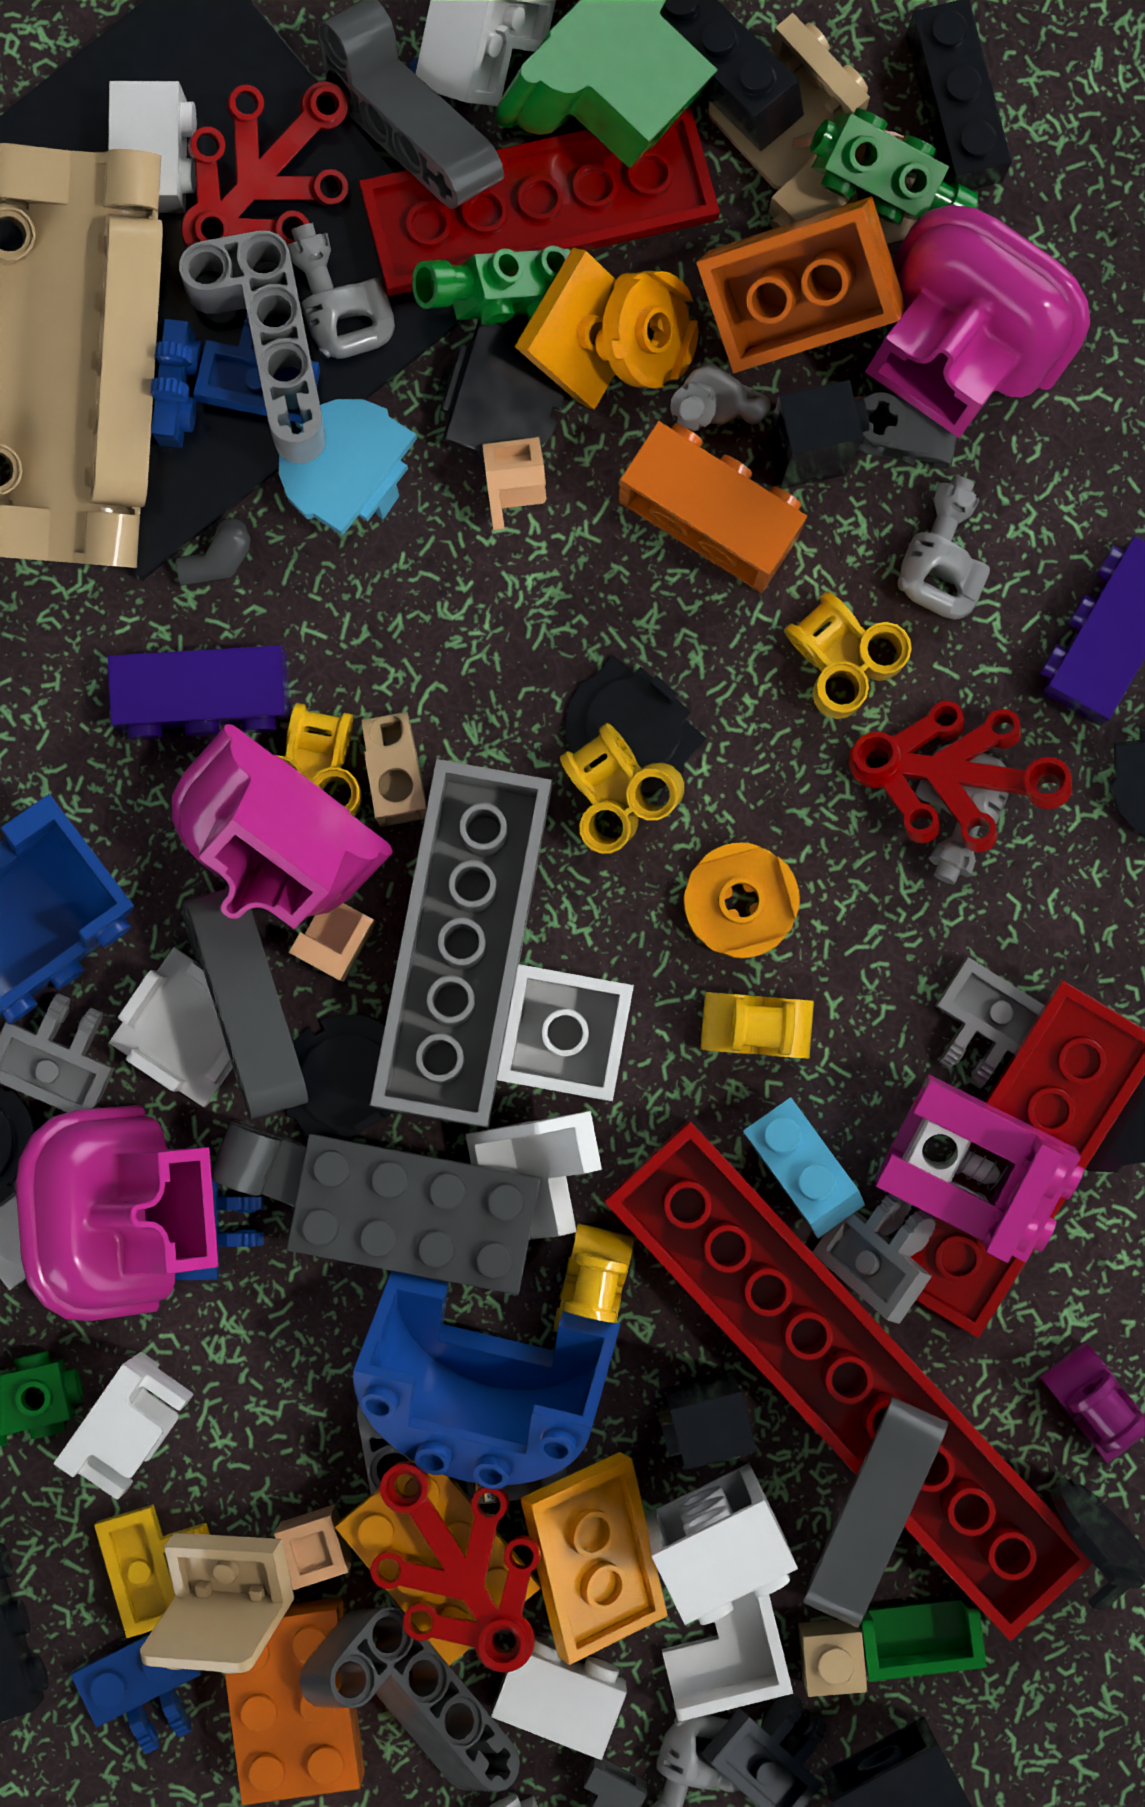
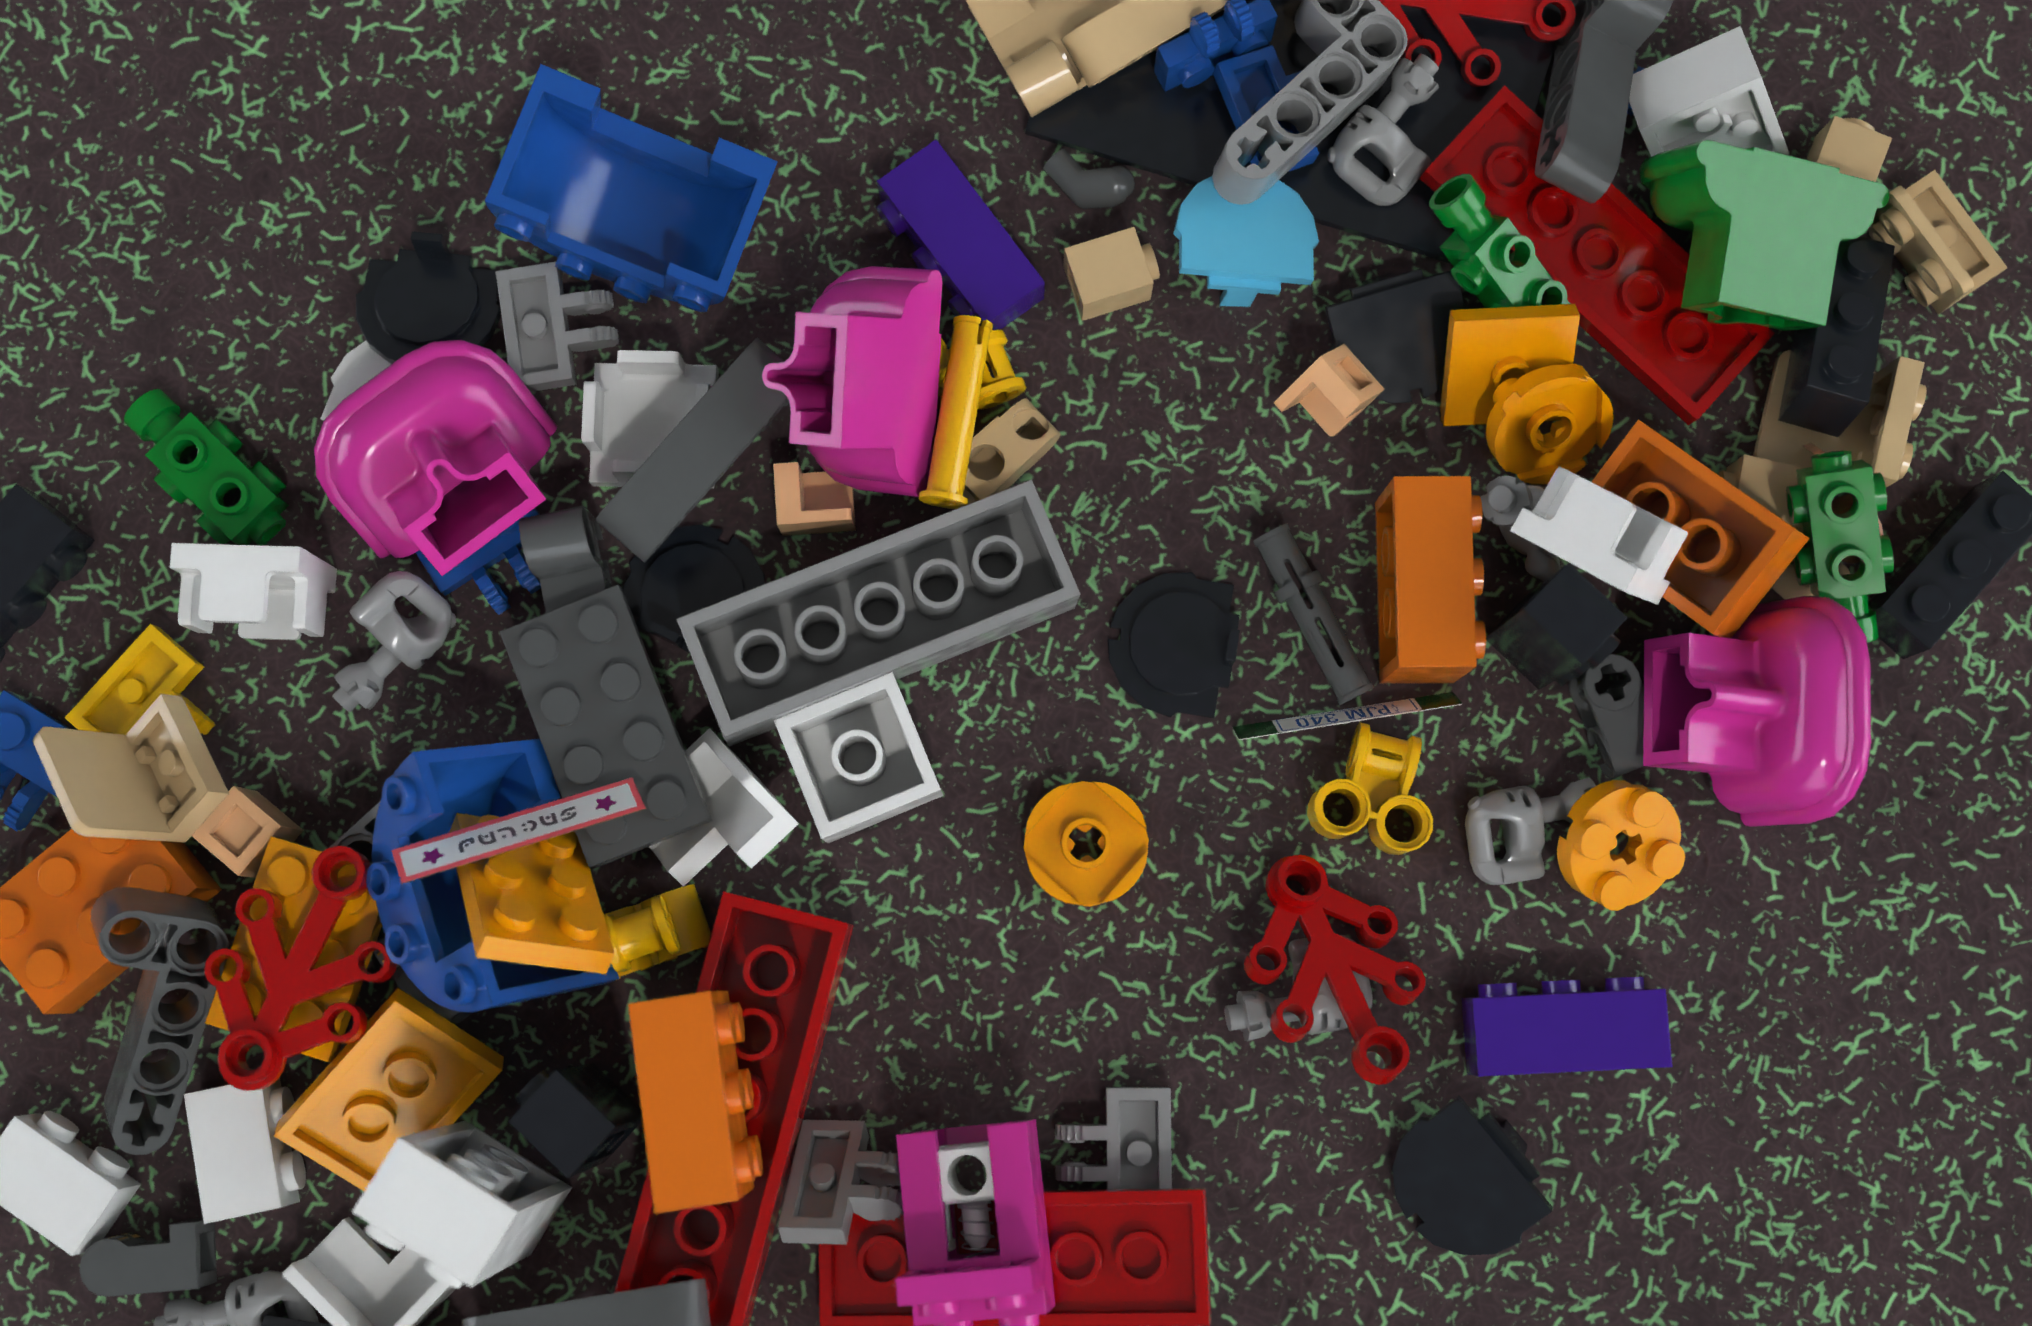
camera: 55 degrees right, 5 degrees down
(235, 1331) = (402, 638): none -> light grey piece
(304, 588) = (1110, 273): none -> tan brick
(344, 781) = (957, 413): none -> yellow pin
(460, 1329) = (517, 830): none -> sticker
(515, 1351) = (535, 905): none -> light orange plate
(617, 787) = (1114, 663): yellow piece -> none
(746, 615) = (1280, 548): none -> dark grey pin
(756, 1319) = (694, 1100): none -> orange brick
(757, 1025) = (980, 932): yellow piece -> none
(772, 354) = (1602, 535): none -> white panel
(772, 636) = (1346, 715): none -> sticker
(804, 1167) = (873, 1059): medium azure brick -> none
(1031, 489) = (1646, 861): none -> light orange plate

